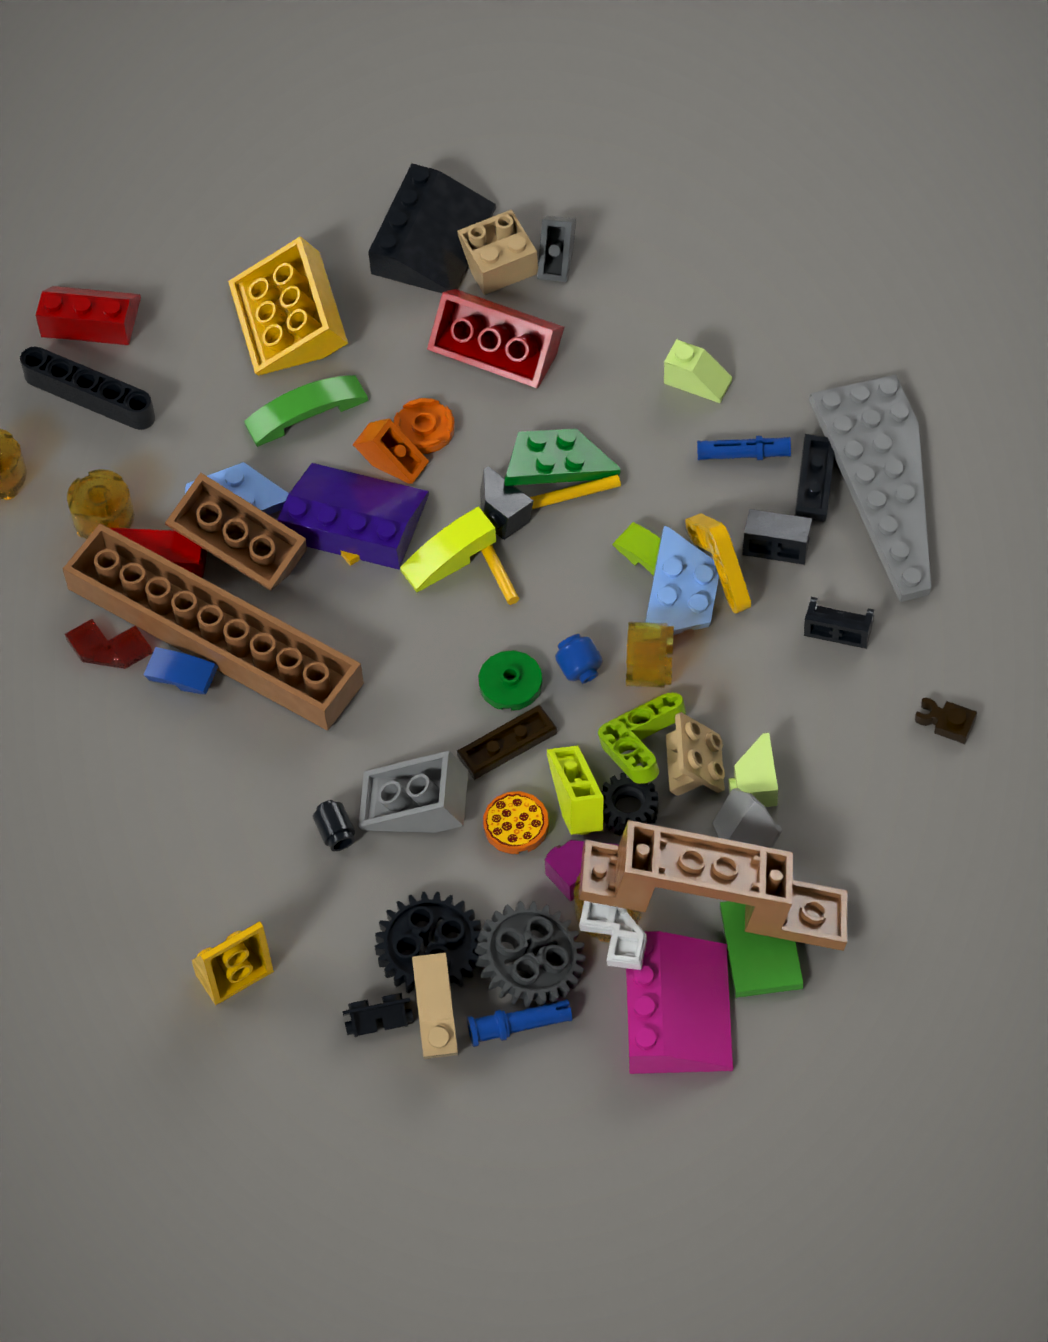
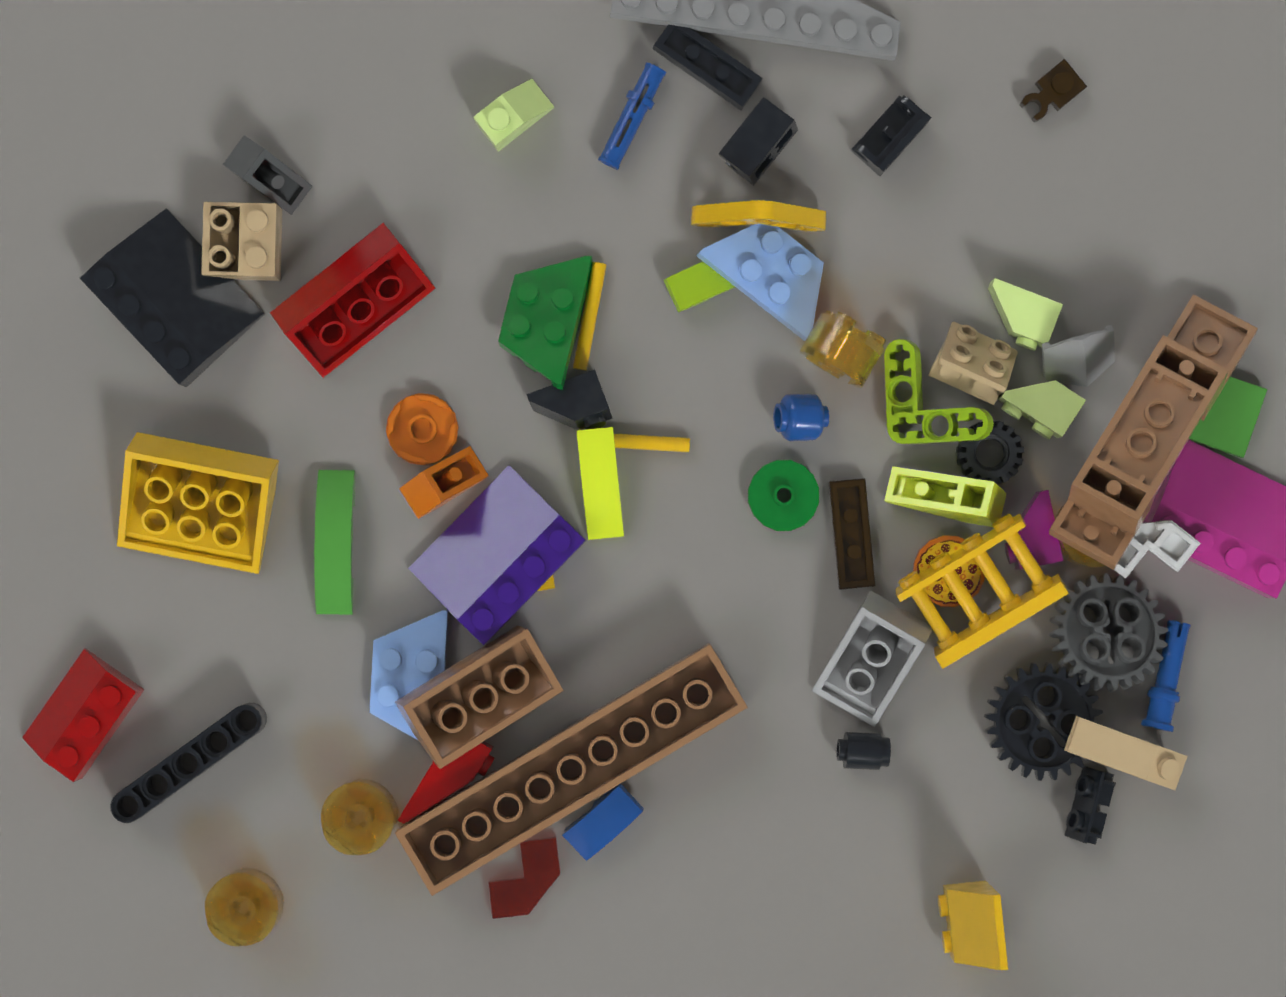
camera: 65 degrees left, 30 degrees up
(510, 869) = (981, 625): none -> yellow fence
(689, 811) = (1044, 404): none -> yellowish green slope

